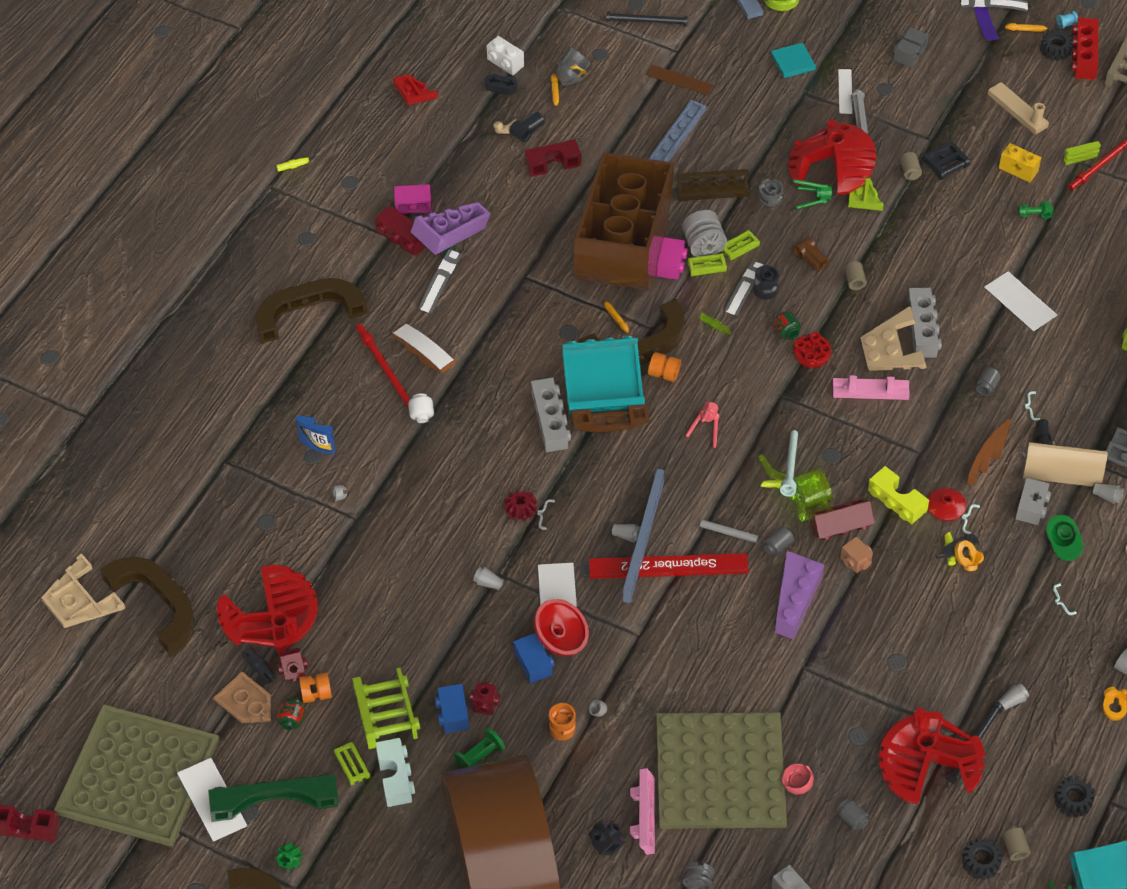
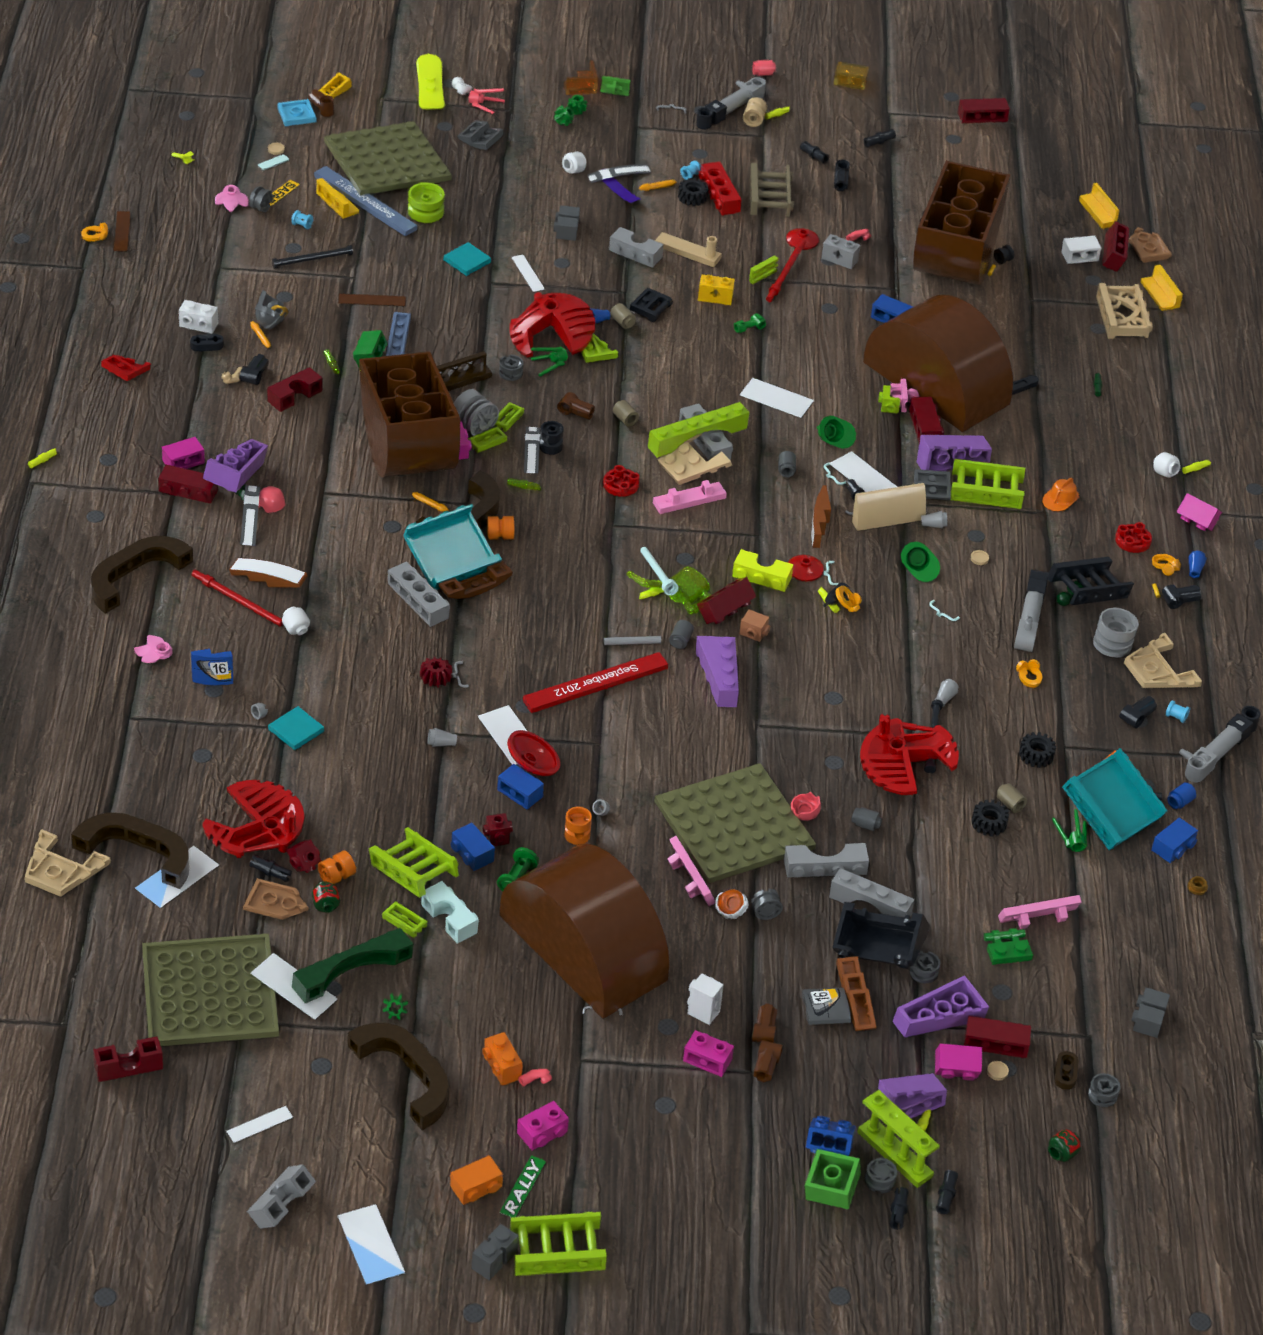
camera: 30 degrees left, 10 degrees down
(153, 654) = (162, 893): none -> sticker
(277, 397) = (154, 650): none -> bright pink plate
(363, 522) = (296, 728): none -> teal tile
(469, 269) = (271, 499): none -> coral hair
(605, 136) = (331, 361): none -> clear neon green piece
(606, 837) = (670, 900): black brick -> none
(626, 531) = (545, 665): light grey cone -> none
(643, 536) = (563, 662): sand blue tile -> none
(644, 134) = (370, 345): none -> green brick
(664, 863) = (731, 904): none -> orange hair
(708, 413) = (561, 554): coral plant -> none
(787, 325) = (589, 467): dark green head -> none
(810, 857) = (804, 863): none -> light grey arch
(857, 97) = (543, 273): light grey axle -> none
(875, 319) = (670, 437): none -> lime arch
(886, 159) = (600, 315): none -> blue cone
(972, 102) = (647, 253): none -> light grey arch
(1032, 501) = (877, 543): light grey brick -> none
(1057, 361) = (836, 432): none -> green piece
(1063, 417) = (864, 475): none -> white sticker

